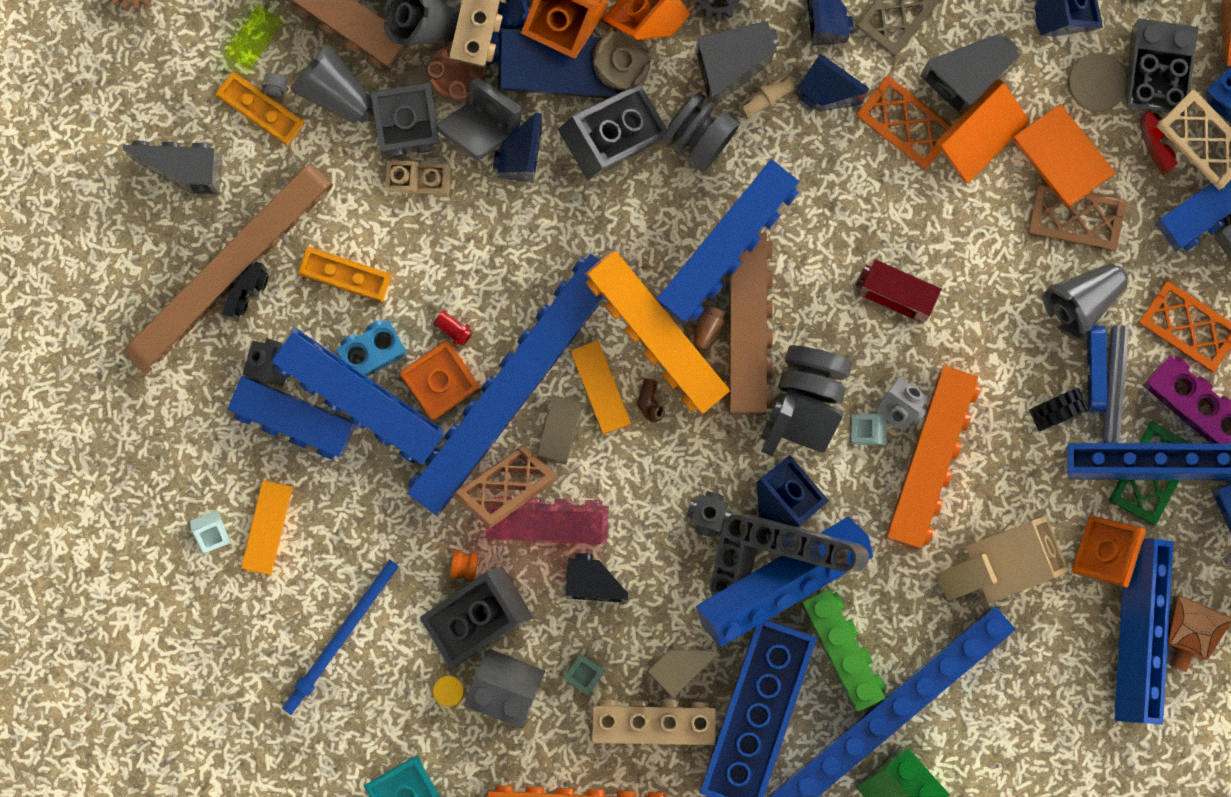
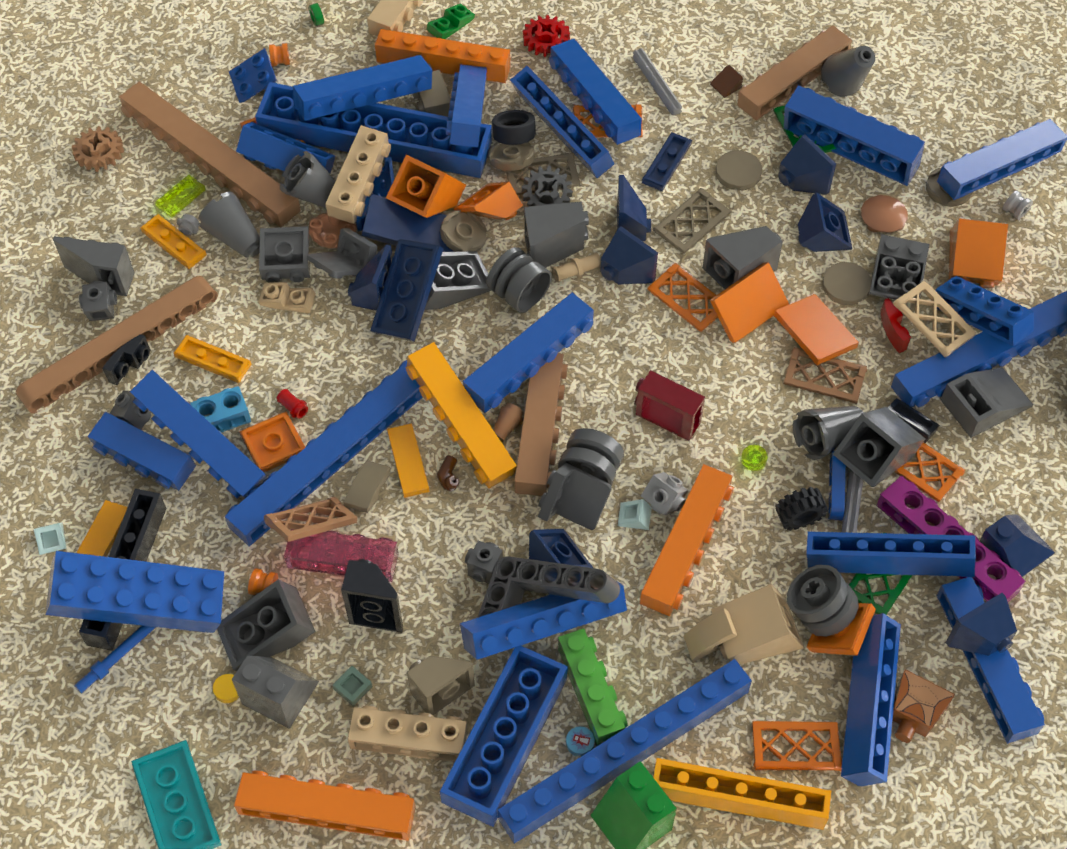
camera: 10 degrees right, 25 degrees down
(202, 212) = (98, 301): none -> dark grey brick
(306, 568) = (131, 543): none -> black brick
(332, 609) = (135, 592): none -> blue brick
(567, 164) = (406, 290): none -> dark blue tile
(836, 708) = (579, 741): none -> medium azure tile
(1000, 339) = (754, 457): none -> clear neon green tile
(1011, 753) = (743, 794): none -> light orange brick
(1077, 664) = (809, 728): none -> orange window
(1087, 525) = (822, 600): none -> dark grey wheel
(1144, 321) = (878, 445): none -> dark grey slope
(1179, 270) = (915, 419): none -> black tile

